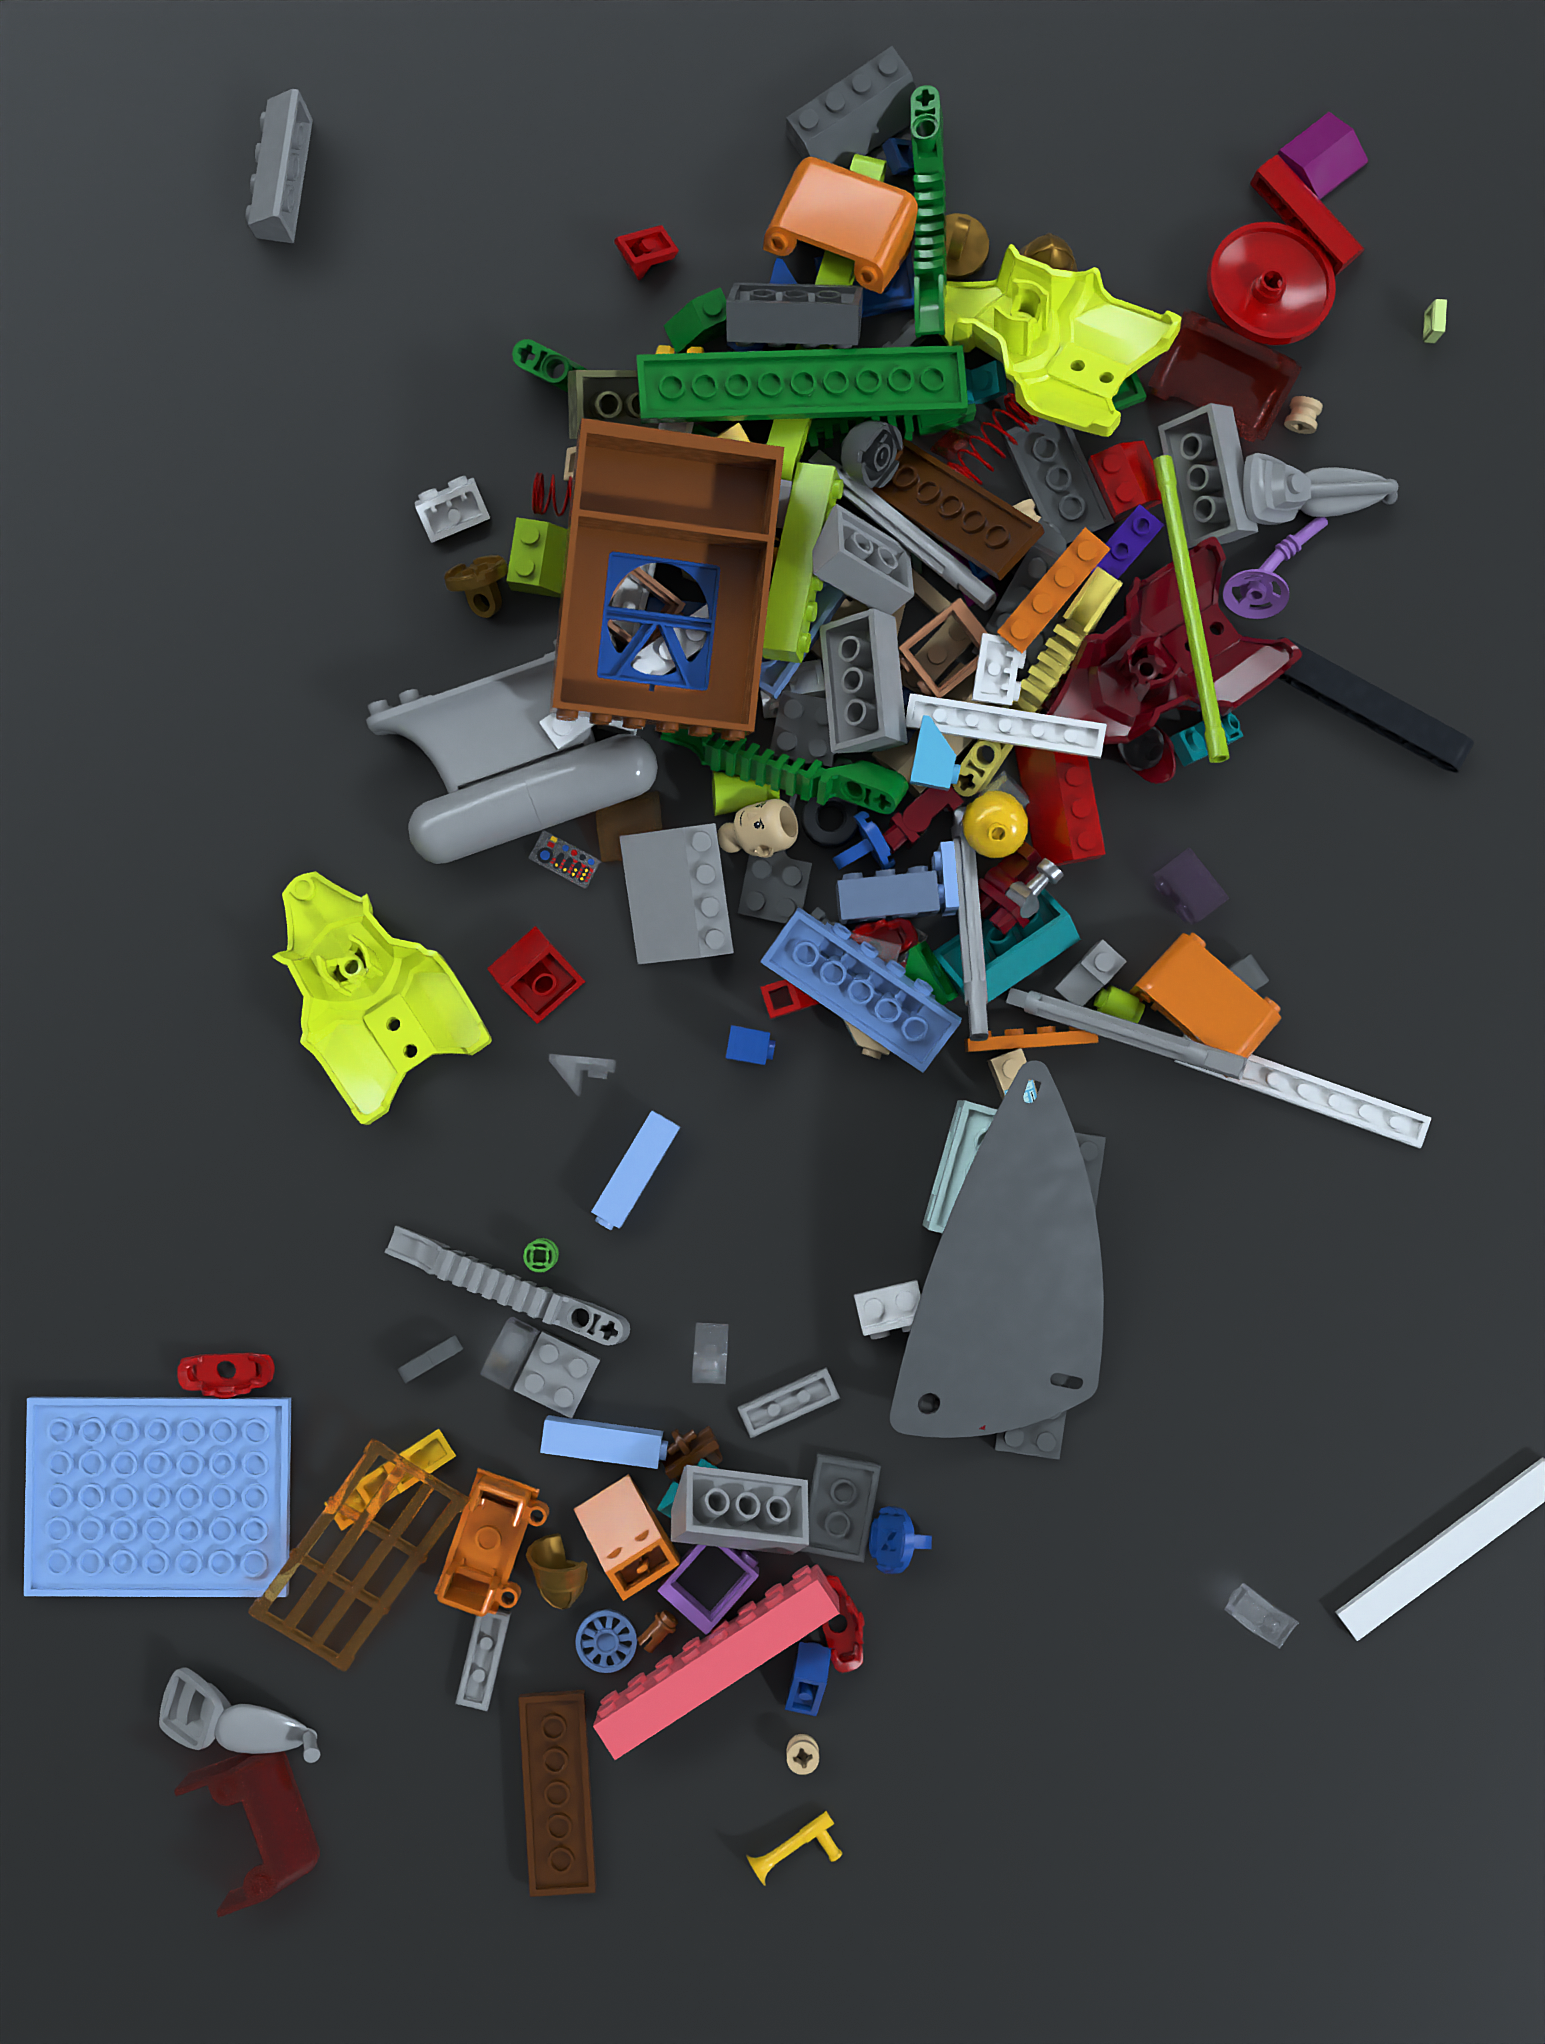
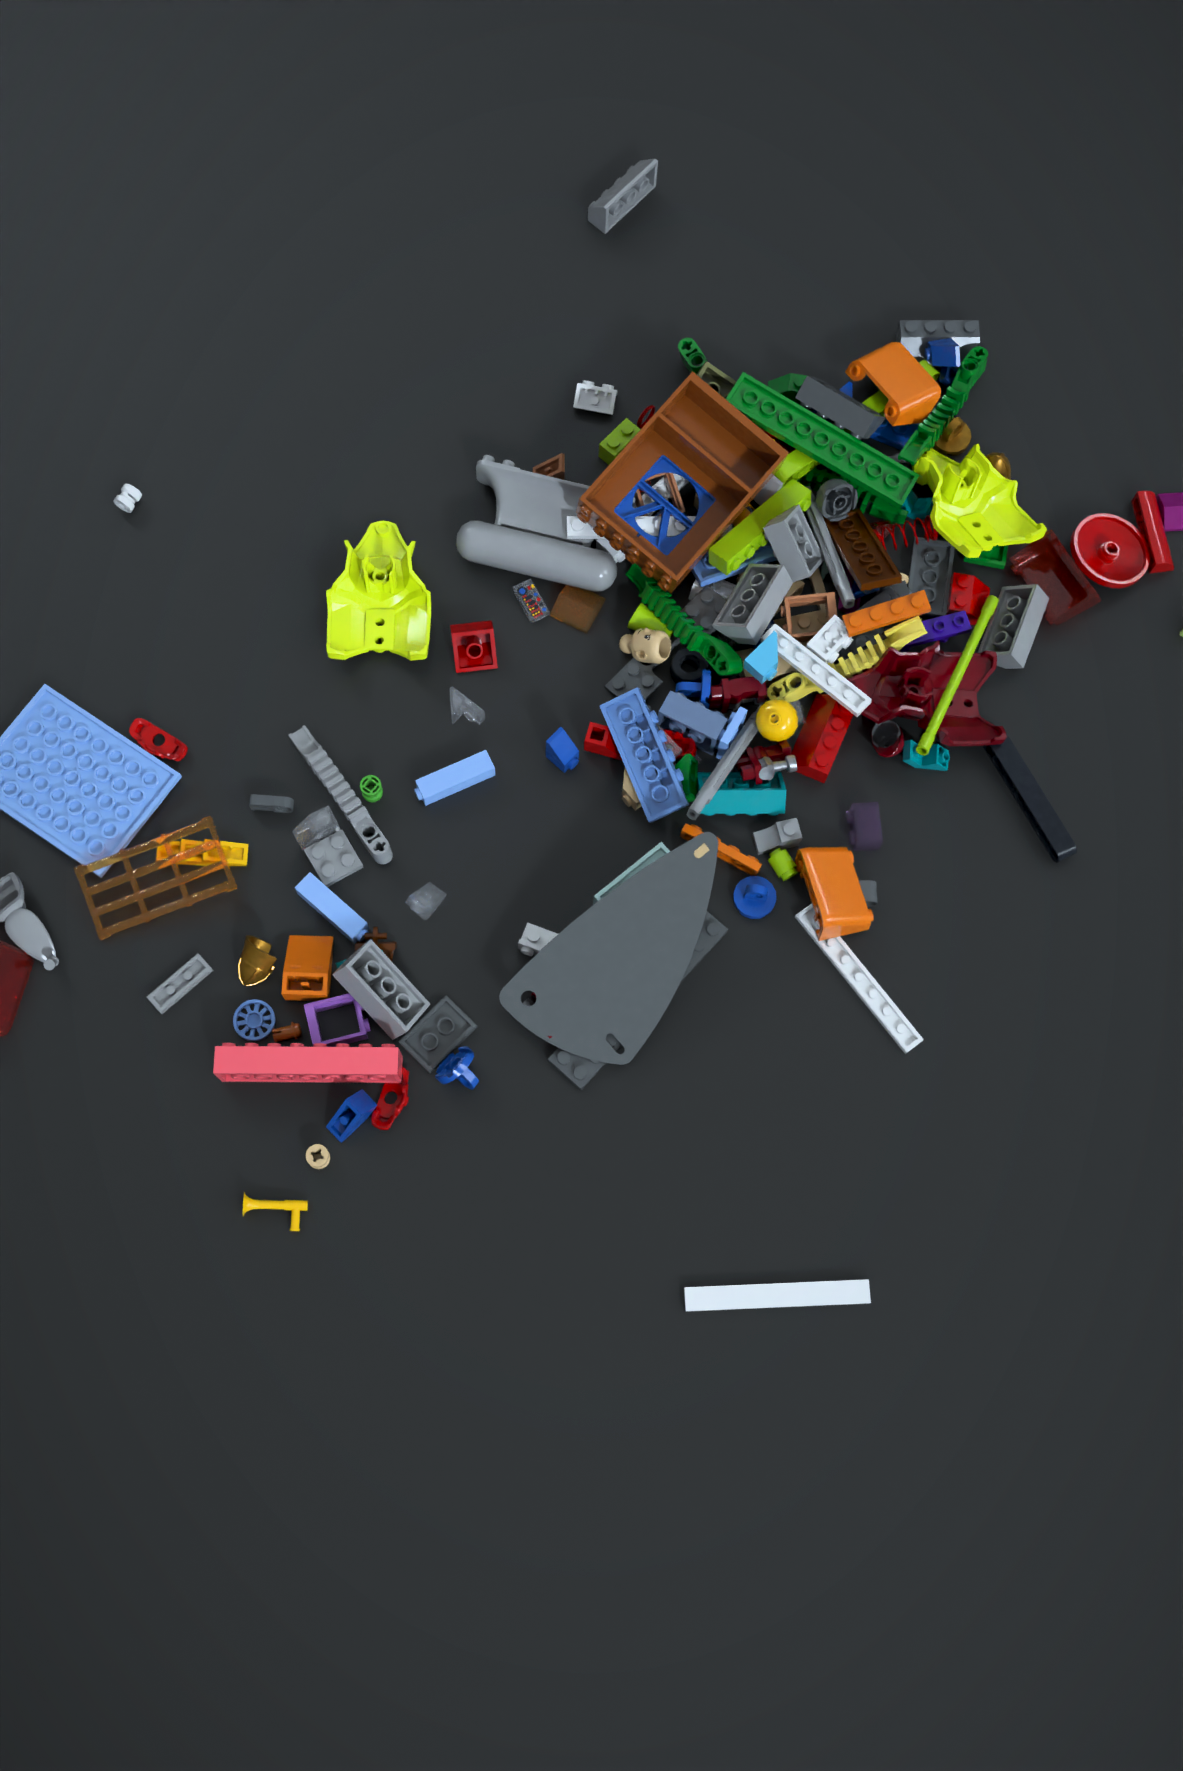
camera: 30 degrees right, 15 degrees down
(466, 661) = (553, 467): none -> nougat slope
(477, 580) = (583, 437): pearl gold tile -> none
(488, 1544) = (231, 919): orange container -> none
(557, 1793) = (164, 1084): reddish brown plate -> none
(646, 249) = (783, 338): red slope -> none
(676, 894) = (579, 652): light grey slope -> none
(788, 1402) = (449, 957): light grey tile -> none
(877, 131) = (943, 353): none -> blue slope
(1110, 1072) = (754, 897): none -> blue tile
(1129, 1033) = (778, 872): light grey piece -> none
(1258, 586) = (1007, 694): medium lavender dish -> none
(1260, 1615) = (638, 1256): clear slope -> none
(1278, 490) = (1047, 655): light grey piece -> none
(1303, 414) = (1086, 627): tan wheel -> none

